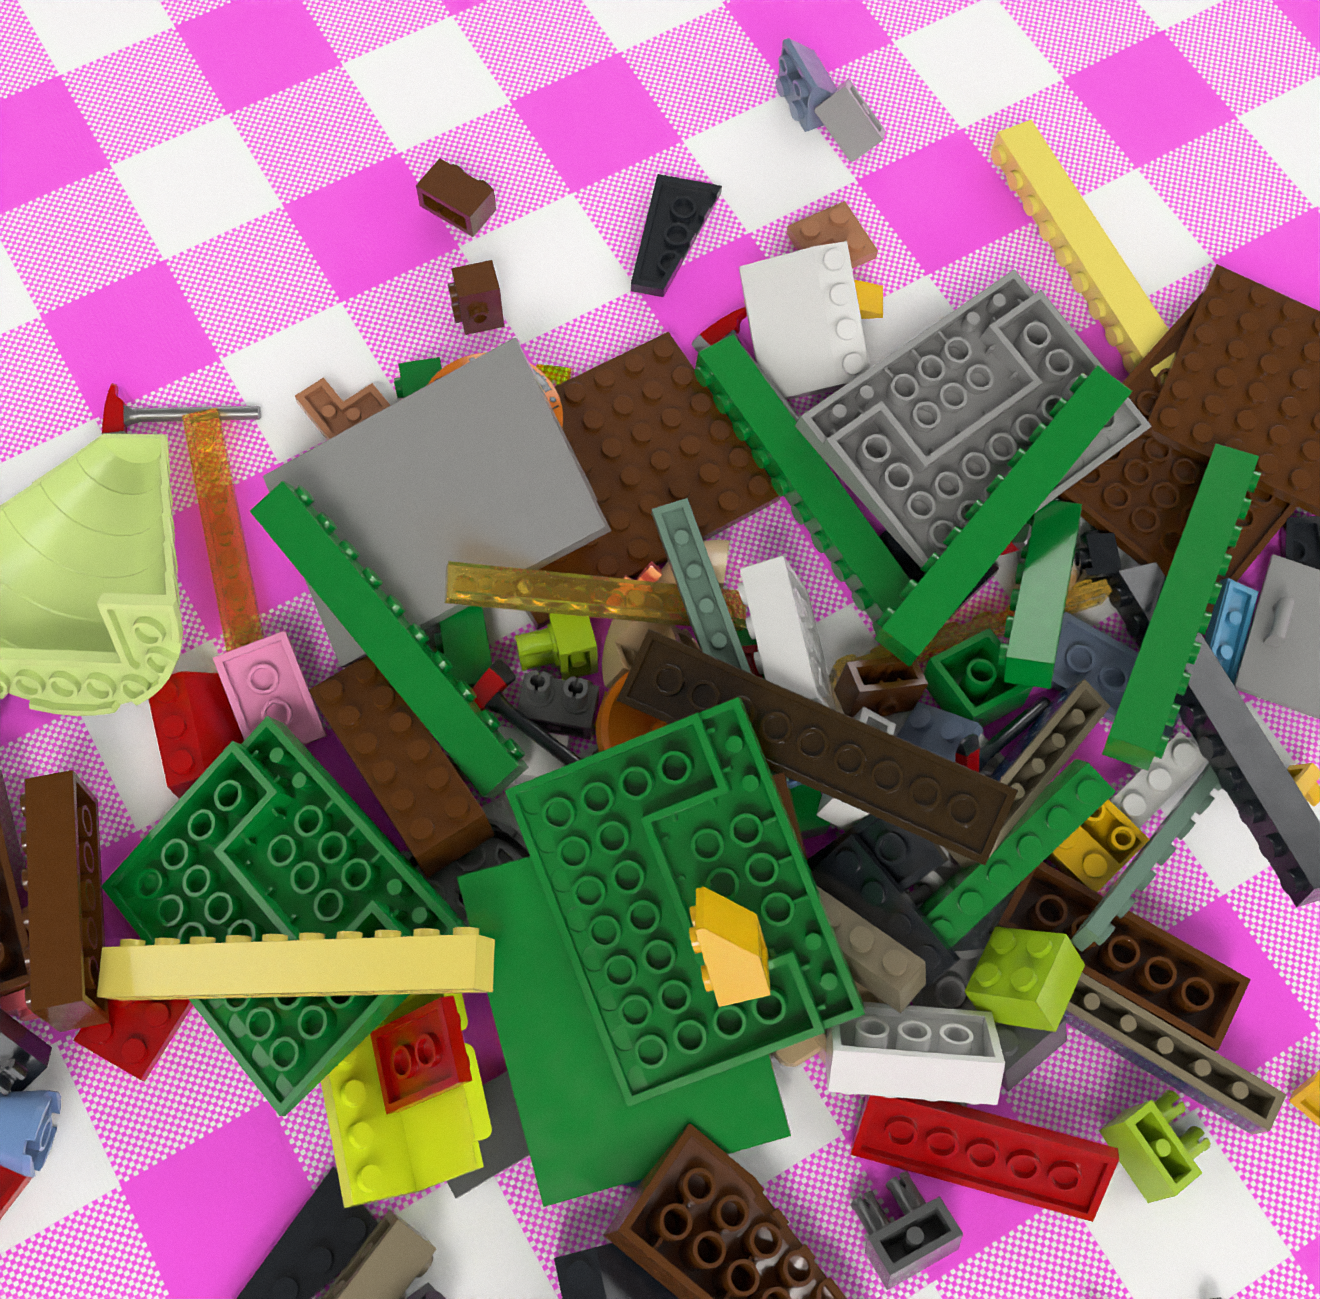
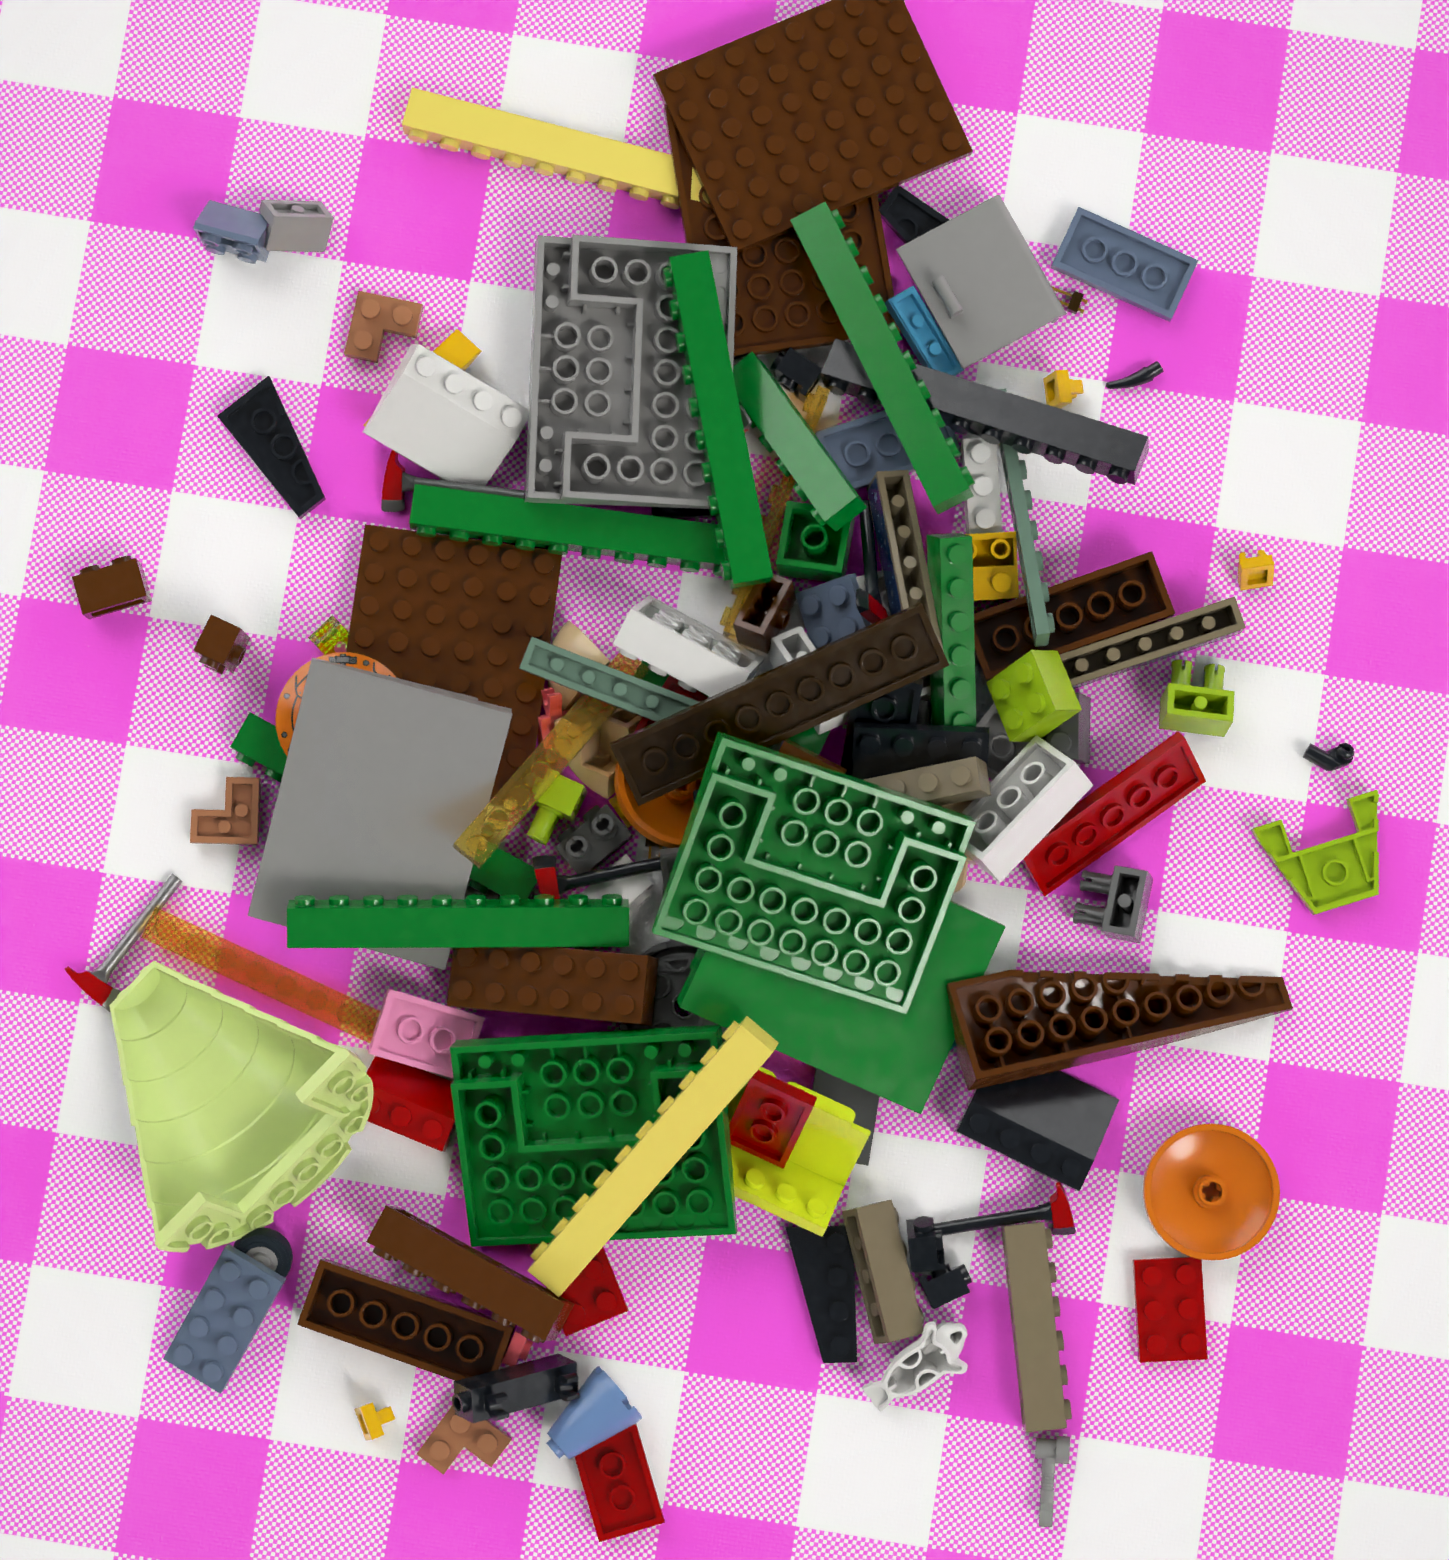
camera: 45 degrees left, 15 degrees up
(730, 947) = (873, 874): yellow slope -> none

